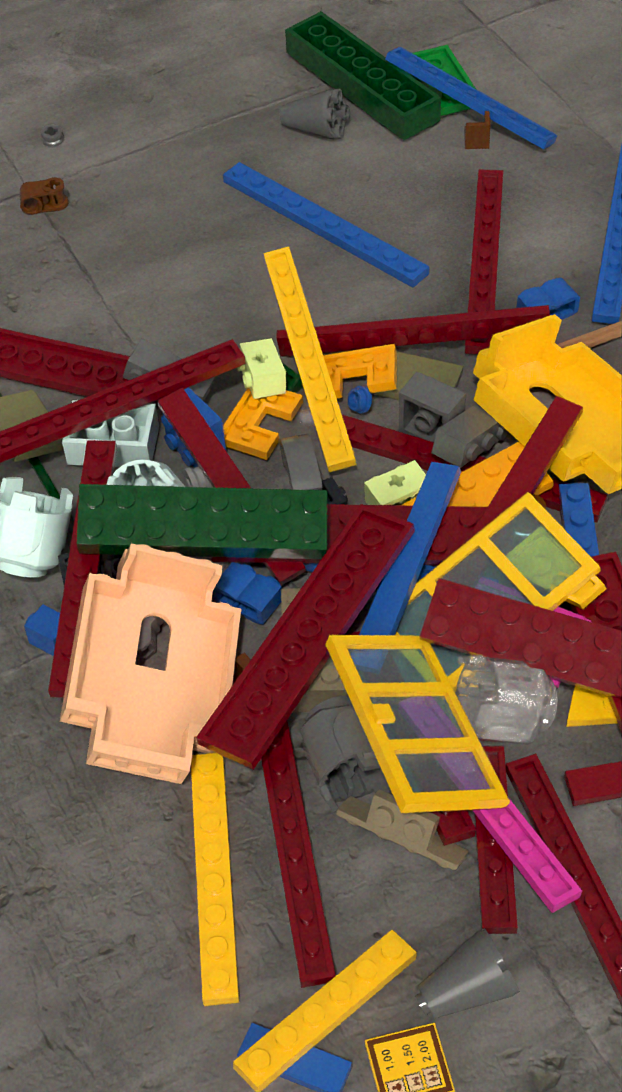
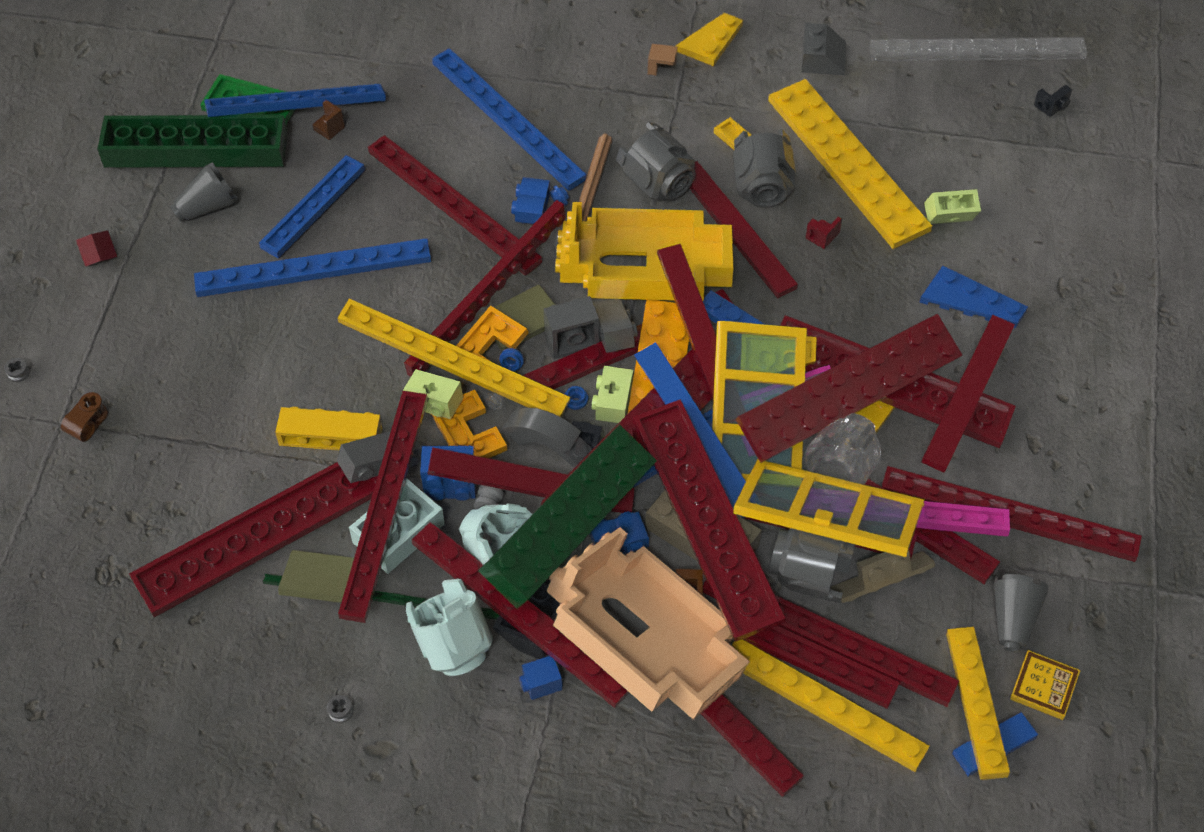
camera: 55 degrees left, 5 degrees up
(116, 840) = (752, 745): none -> dark red plate
(163, 325) = (324, 428): none -> yellow brick
(204, 97) = (96, 248): none -> dark red panel
(255, 848) = (826, 664): none -> dark red plate
(368, 467) = (577, 392): none -> blue plate
(382, 180) = (311, 206): none -> blue plate
(575, 317) = (559, 194): none -> blue plate

